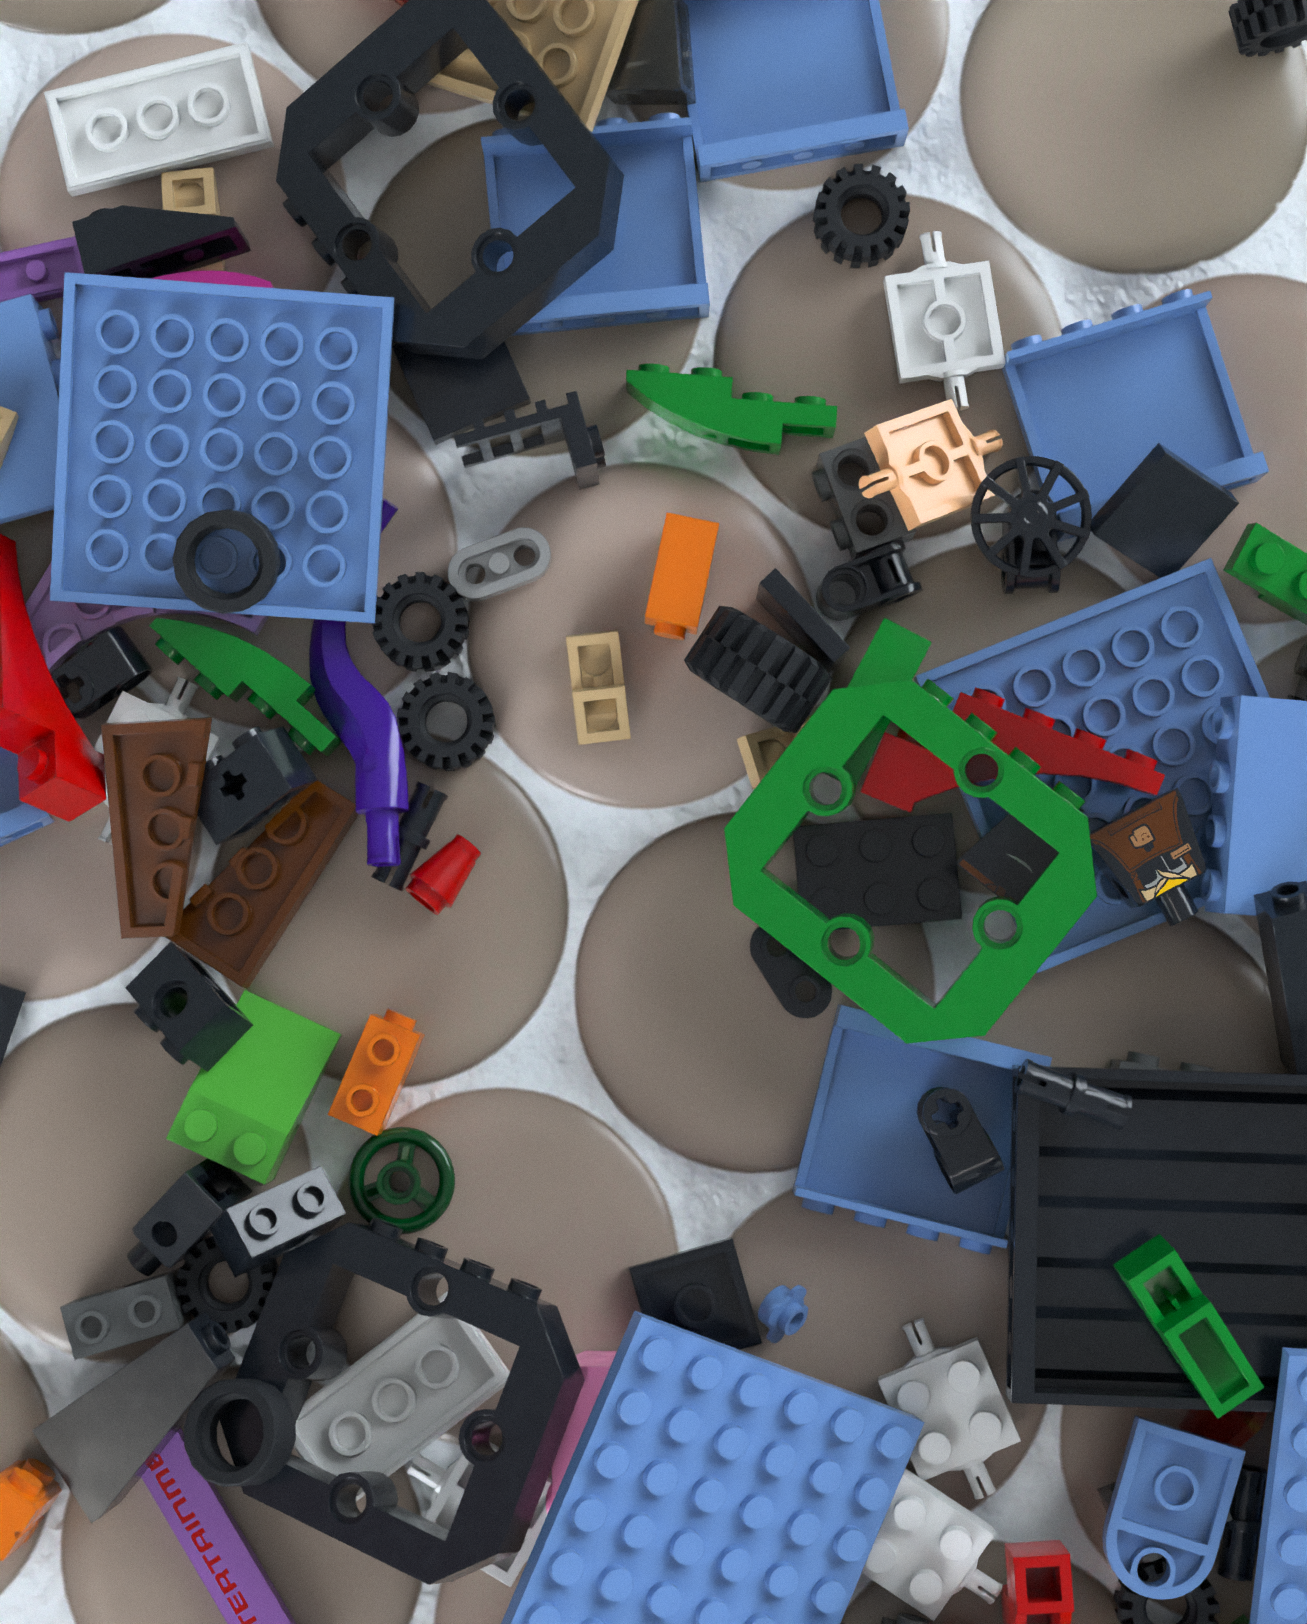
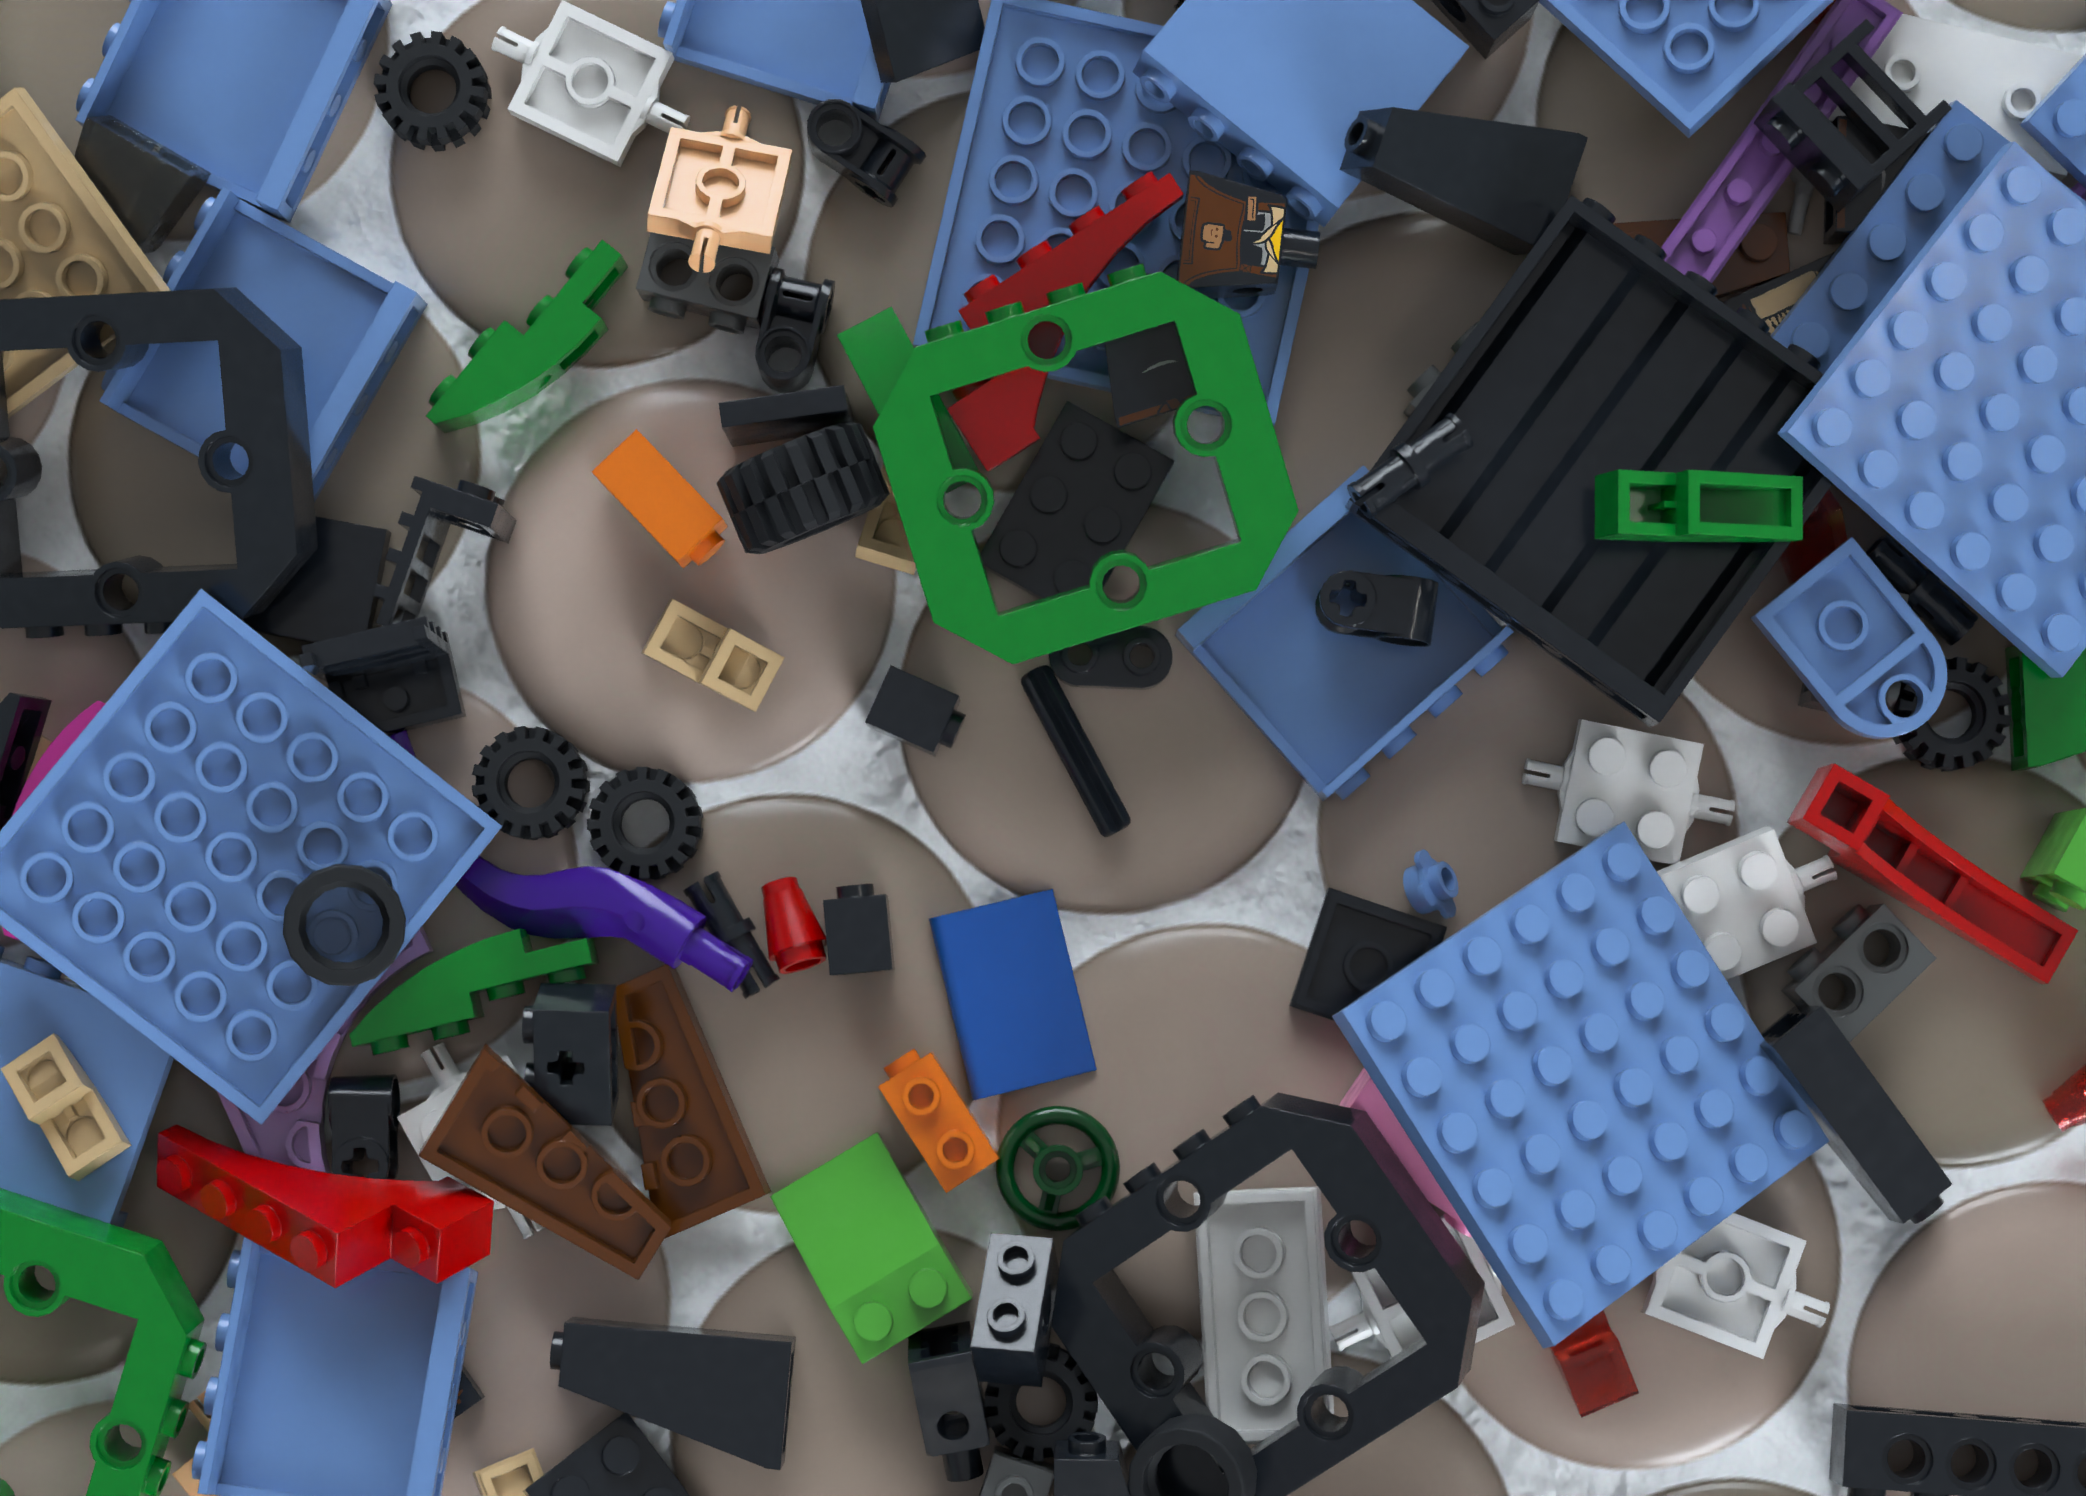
camera: 60 degrees left, 0 degrees up
(75, 1022) = (689, 1380): none -> black slope
(188, 1008) = (750, 1259): black brick -> none
(428, 472) = (391, 674): none -> black plate
(471, 924) = (858, 931): none -> black brick
(498, 561) = (527, 669): light grey plate -> none
(502, 1064) = (1012, 994): none -> blue piece
(655, 858) = (916, 712): none -> black brick
(706, 990) = (1075, 750): none -> black axle
(1031, 516) = (837, 128): black wheel -> none

